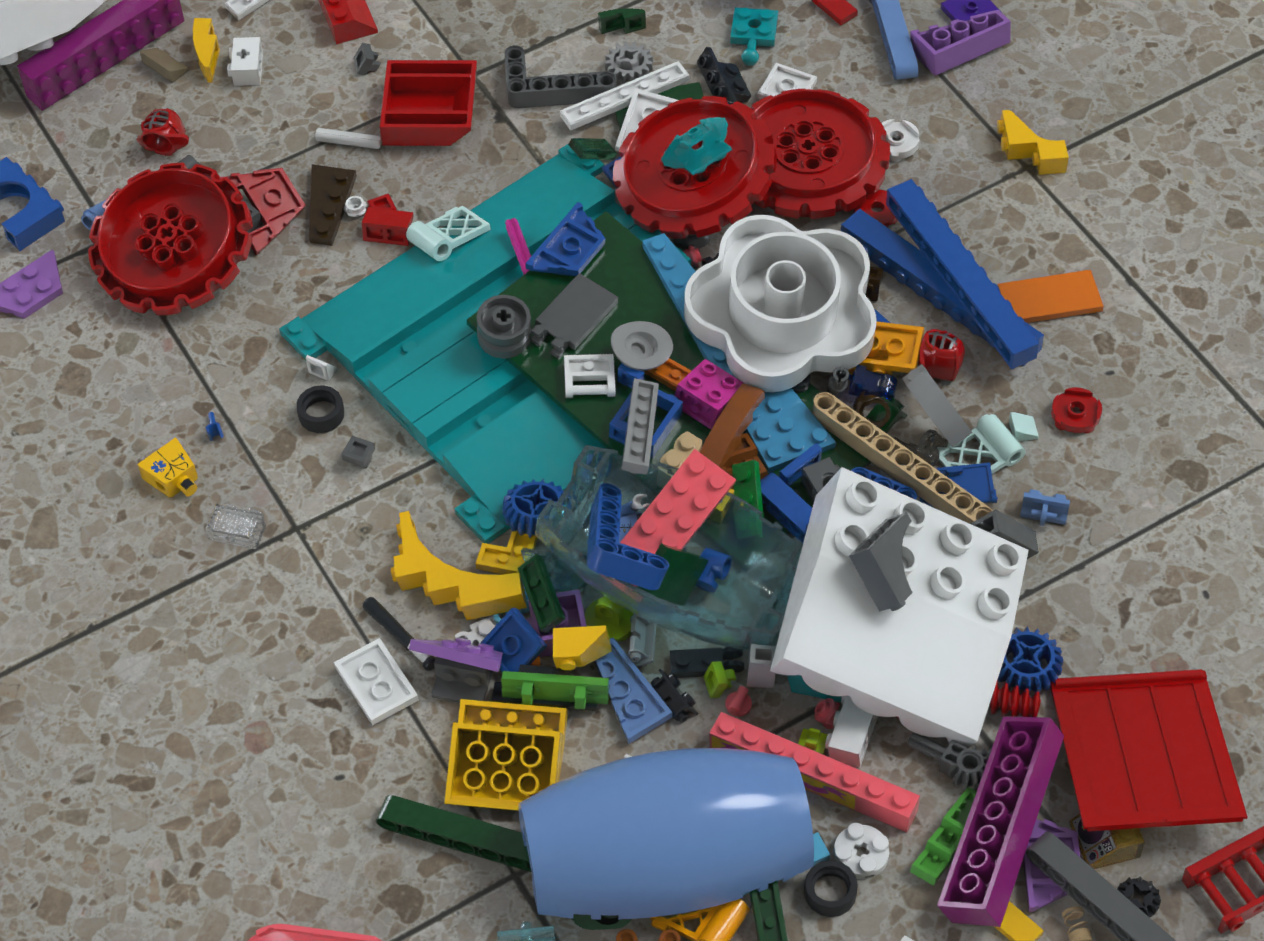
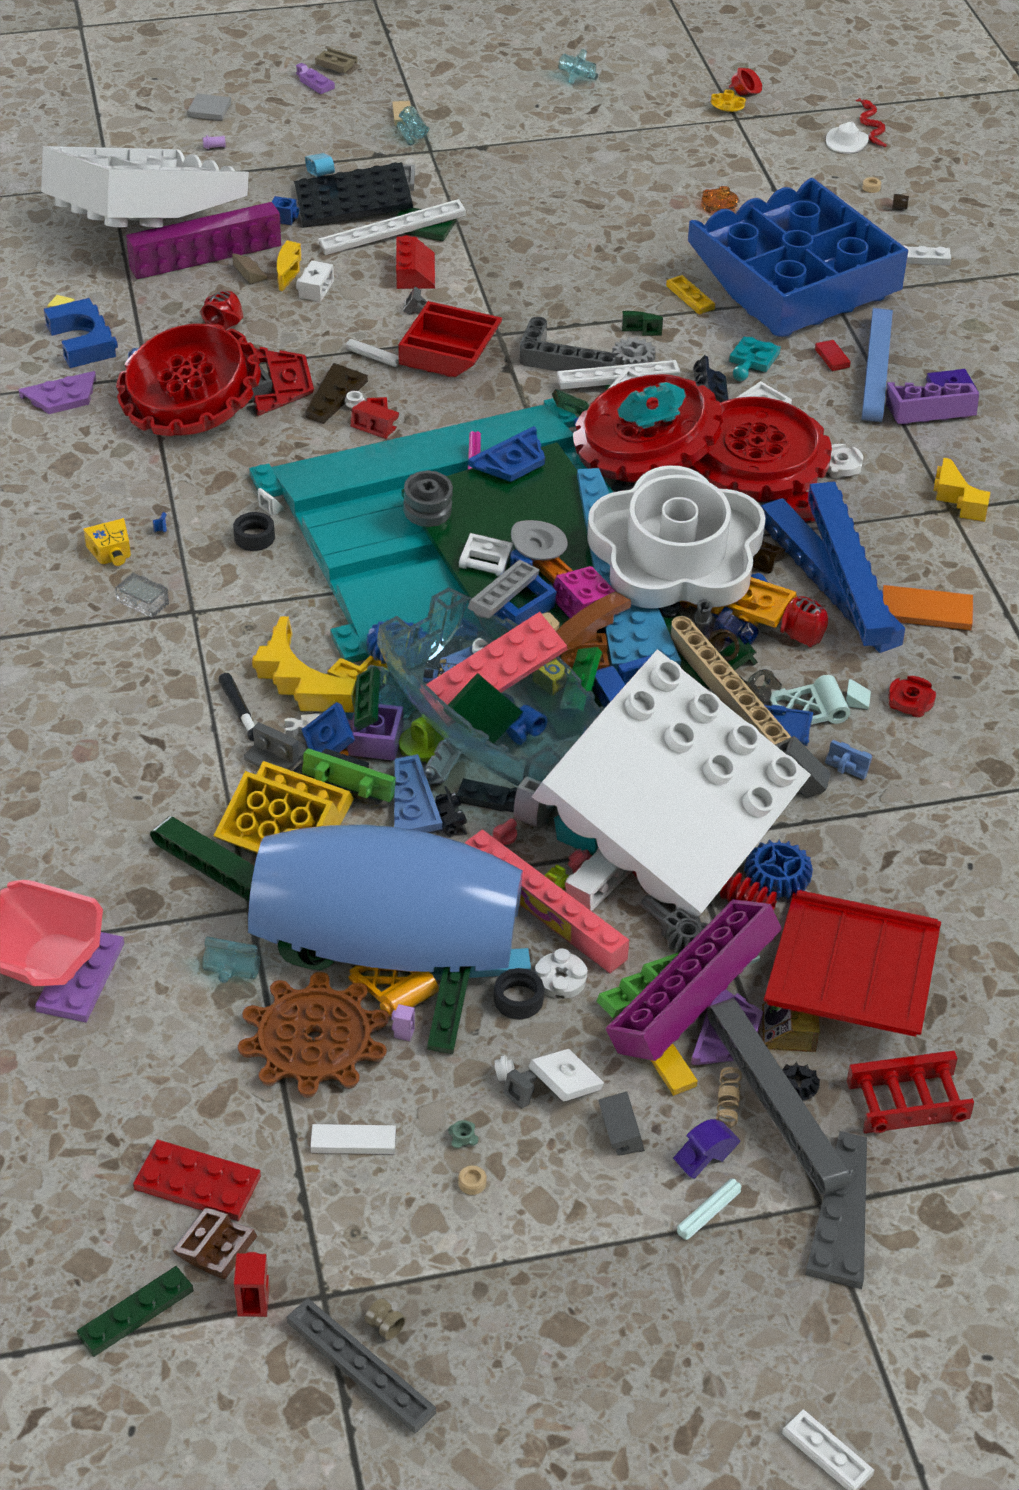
camera: 15 degrees right, 10 degrees down
(358, 452) = (269, 568): dark grey tile -> none
(376, 681) = (202, 734): white plate -> none
(437, 241) = (411, 435): light aqua piece -> none
(460, 651) = (282, 725): medium lavender wing -> none
(573, 314) = (492, 508): dark grey tile -> none
(579, 645) = (381, 744): yellow slope -> none
(613, 558) = (432, 672): blue beam -> none
(718, 679) = (495, 810): lime tile -> none
(881, 563) = (657, 730): dark grey arch -> none
(936, 405) = (782, 655): light grey arch -> none

